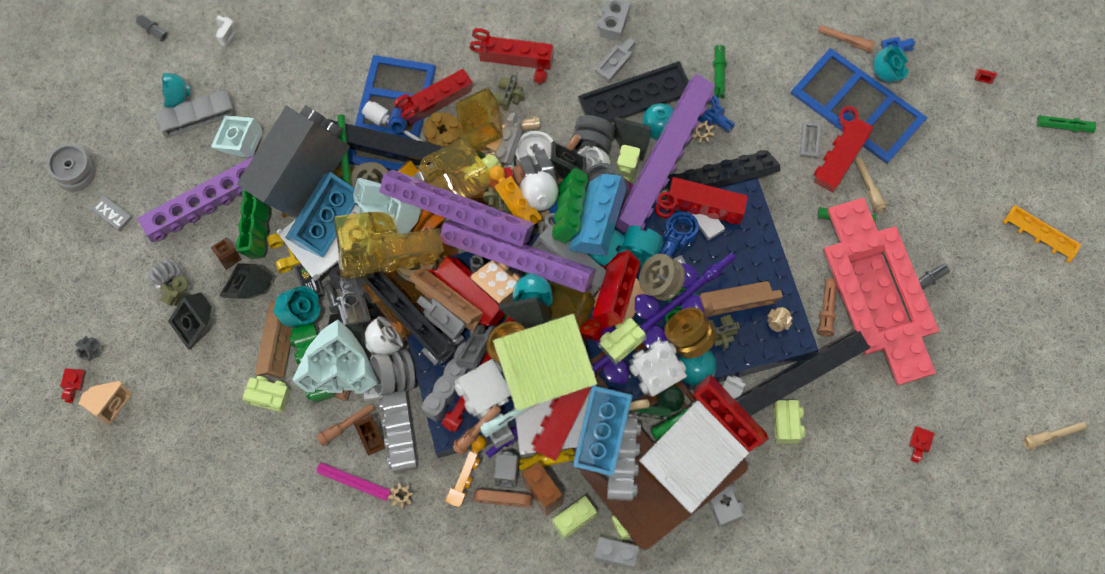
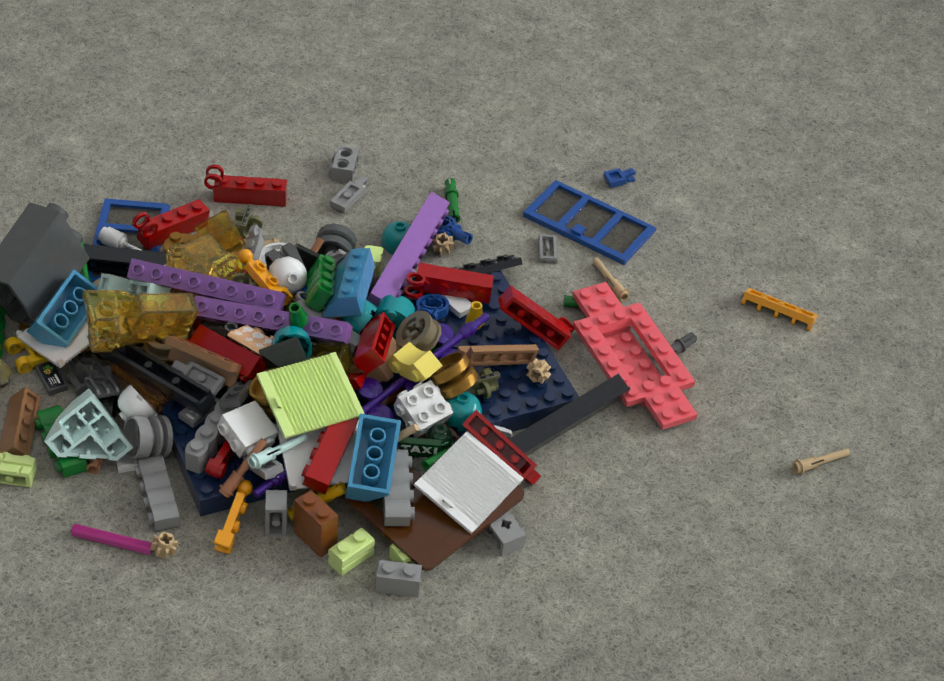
camera: 15 degrees left, 25 degrees down
(297, 307) = (42, 389): teal brick -> none
(335, 430) = (90, 495): nougat pin -> none
(369, 434) = (126, 494): reddish brown slope -> none
(396, 122) = (138, 244): blue cone -> none
(502, 498) = (286, 541): nougat beam -> none
(539, 76) = (275, 209): red plate -> none
(544, 268) = (297, 315): none -> green cone
(622, 340) = (385, 383): yellowish green brick -> none
(632, 134) = (374, 237): pearl dark grey slope -> none
(636, 93) = (373, 218): black plate -> none
(653, 320) = (414, 363): none -> light yellow brick
(723, 245) = (474, 312): none -> yellow cone
(784, 251) = (535, 318): none -> red hinge
(787, 422) = (558, 462): yellowish green brick -> none
(827, 315) = (584, 378): nougat pin -> none
(845, 151) = (581, 251): red hinge -> none
(856, 41) = (591, 177): nougat pin -> none
(890, 64) = (614, 187): teal cylinder -> none
(921, 442) = (692, 473): red plate -> none
(985, 76) = (705, 194): red slope -> none
(1066, 124) = (786, 227): green pin -> none

